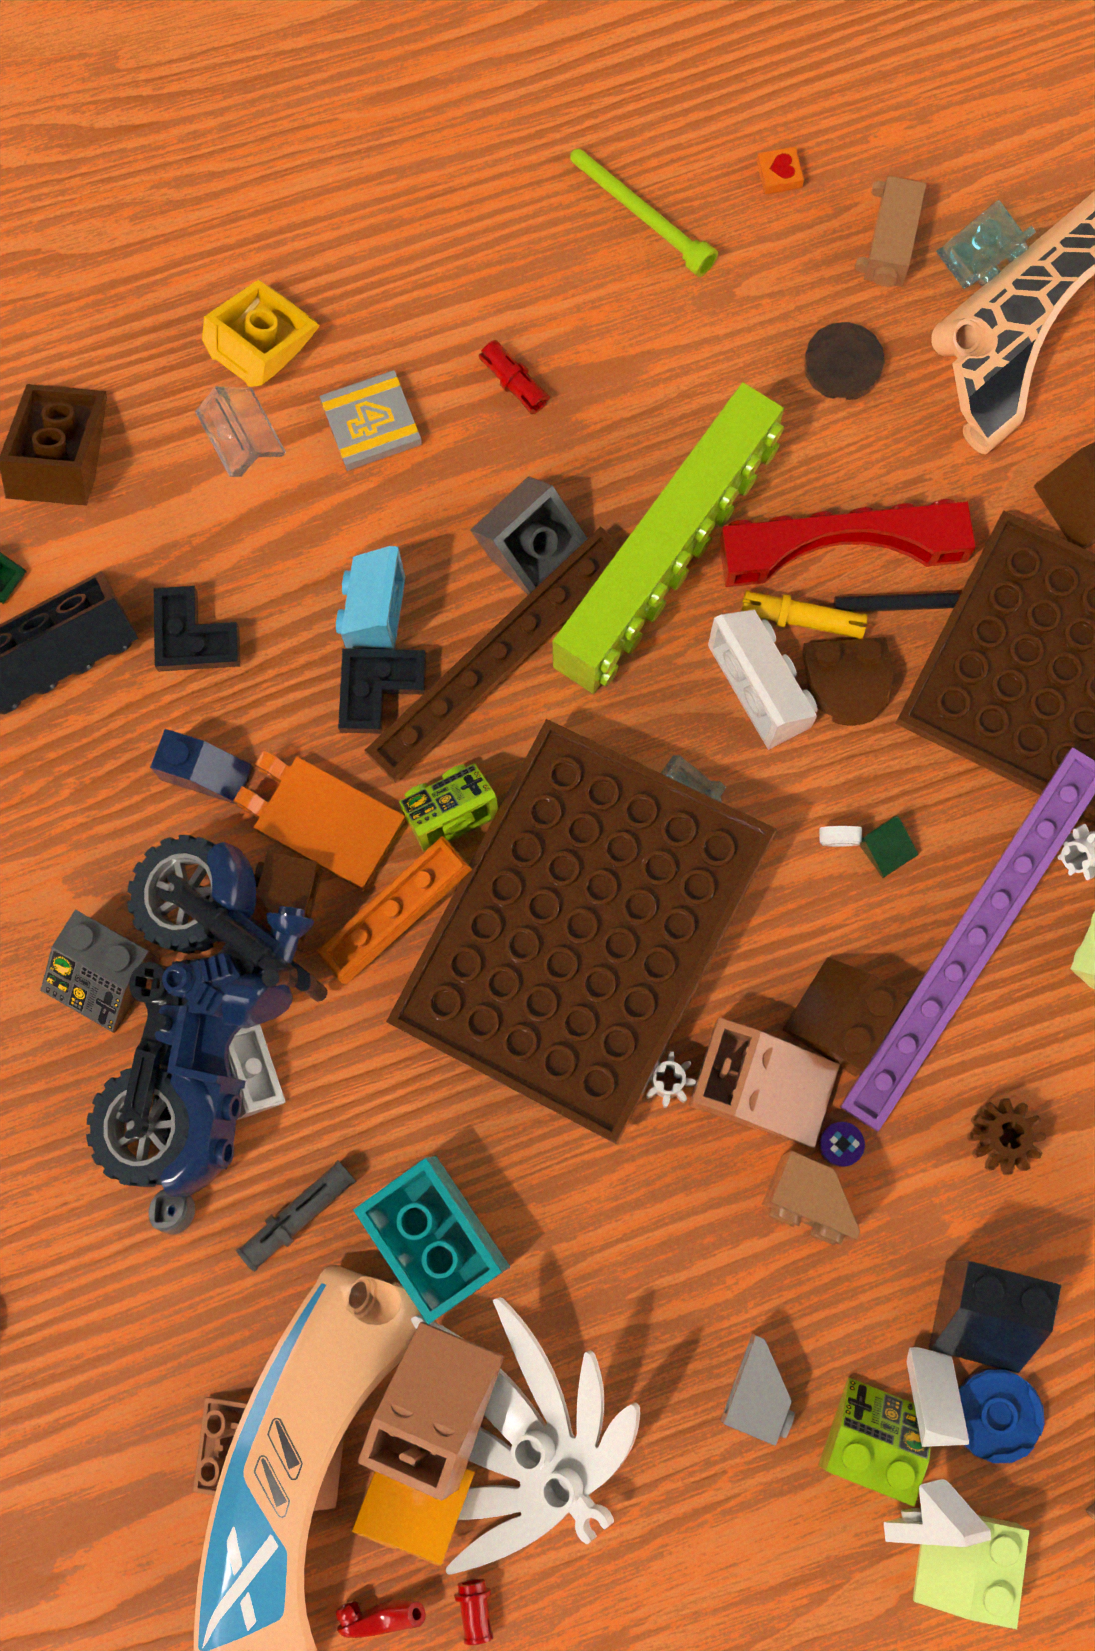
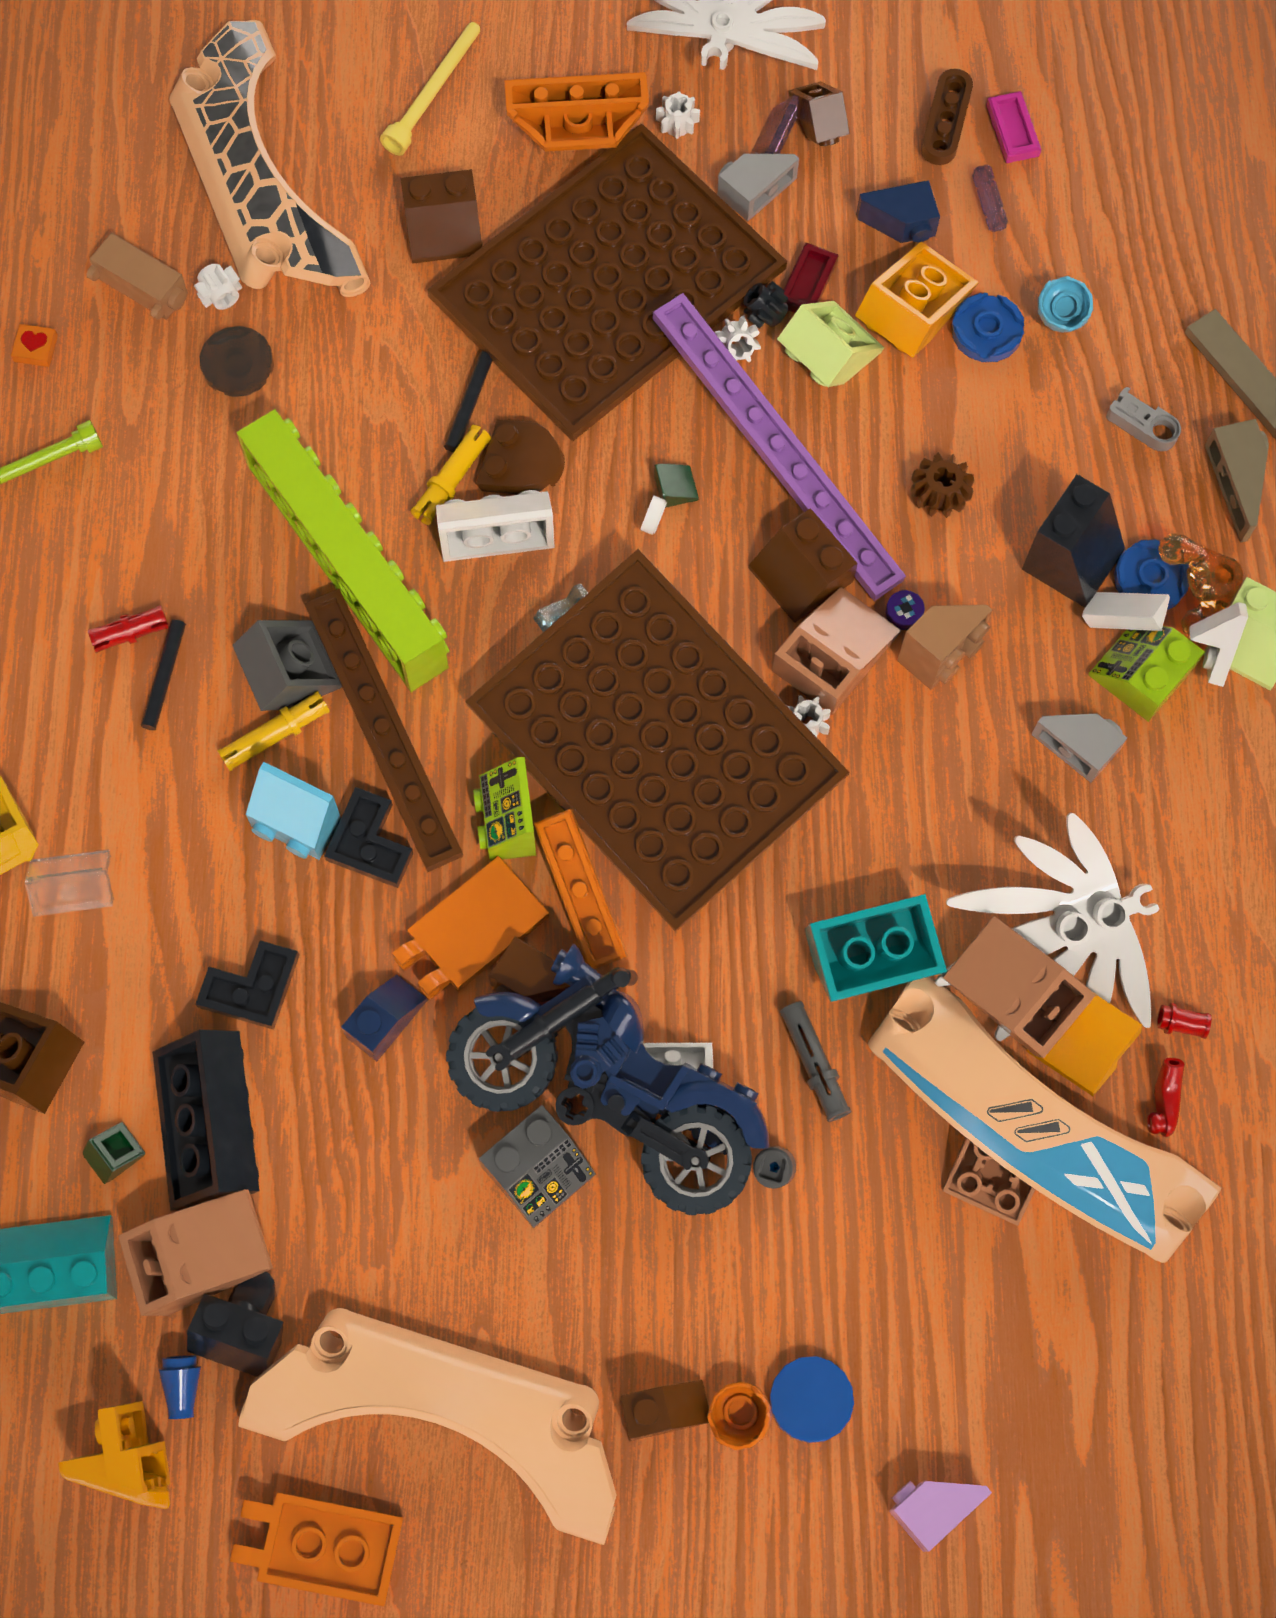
camera: 75 degrees left, 5 degrees down
(370, 420) = (112, 765): light grey tile -> none
(470, 560) = (274, 730): none -> yellow pin
(480, 428) = (163, 675): none -> black bar
(915, 308) = (218, 286): none -> white gear
(927, 534) = (423, 354): red arch -> none
(983, 244) = (186, 213): clear light blue bracket -> none
(1017, 1486) = (1211, 576): none -> clear orange head

